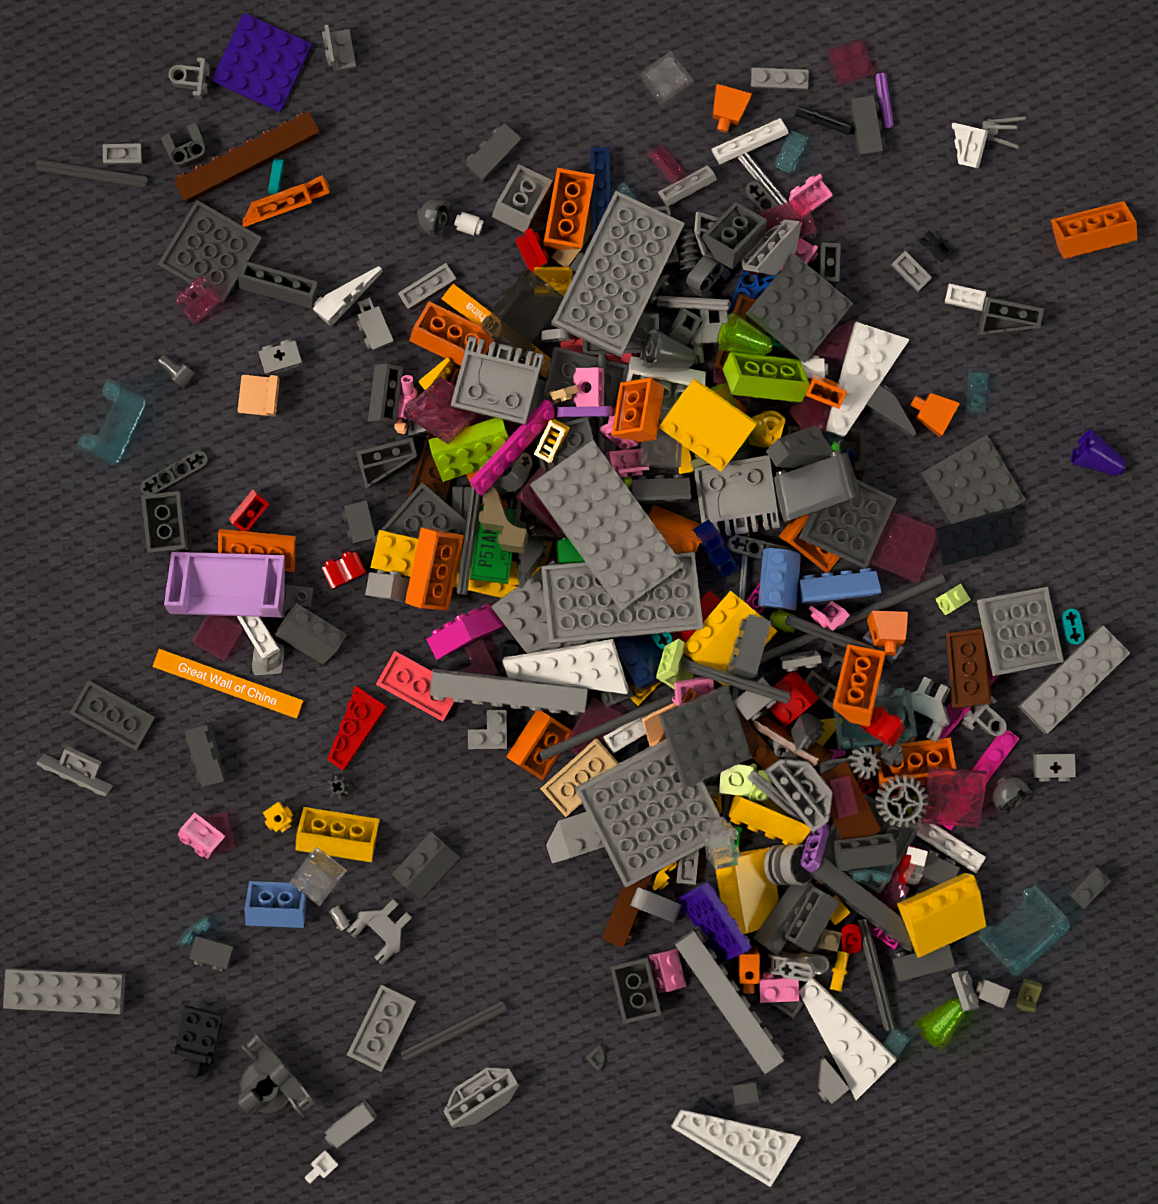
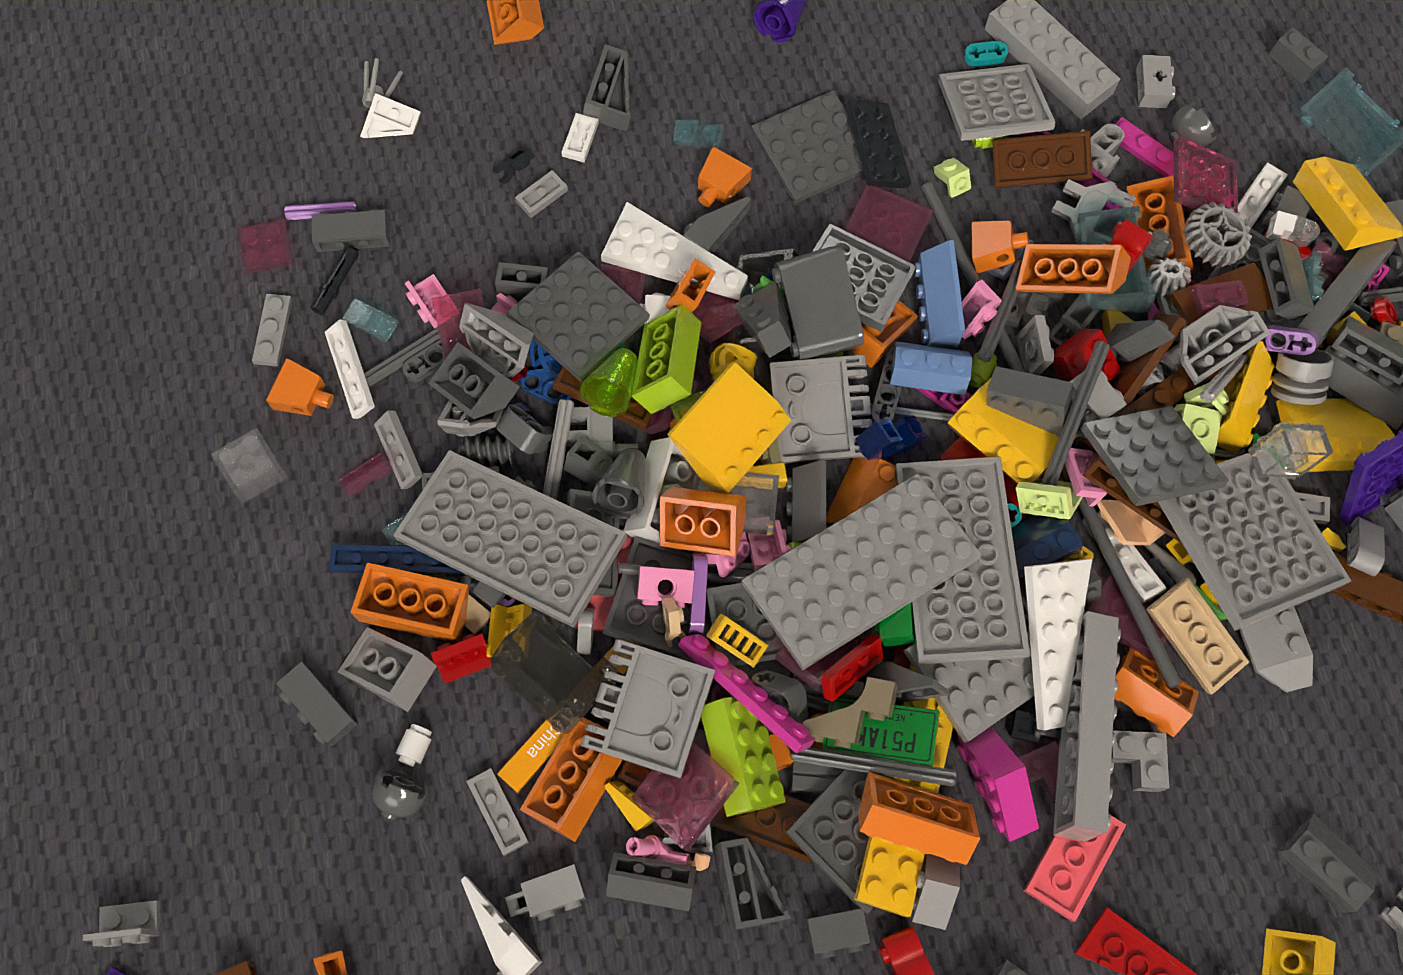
camera: 90 degrees left, 15 degrees down
(534, 520) = (852, 667): none -> red plate

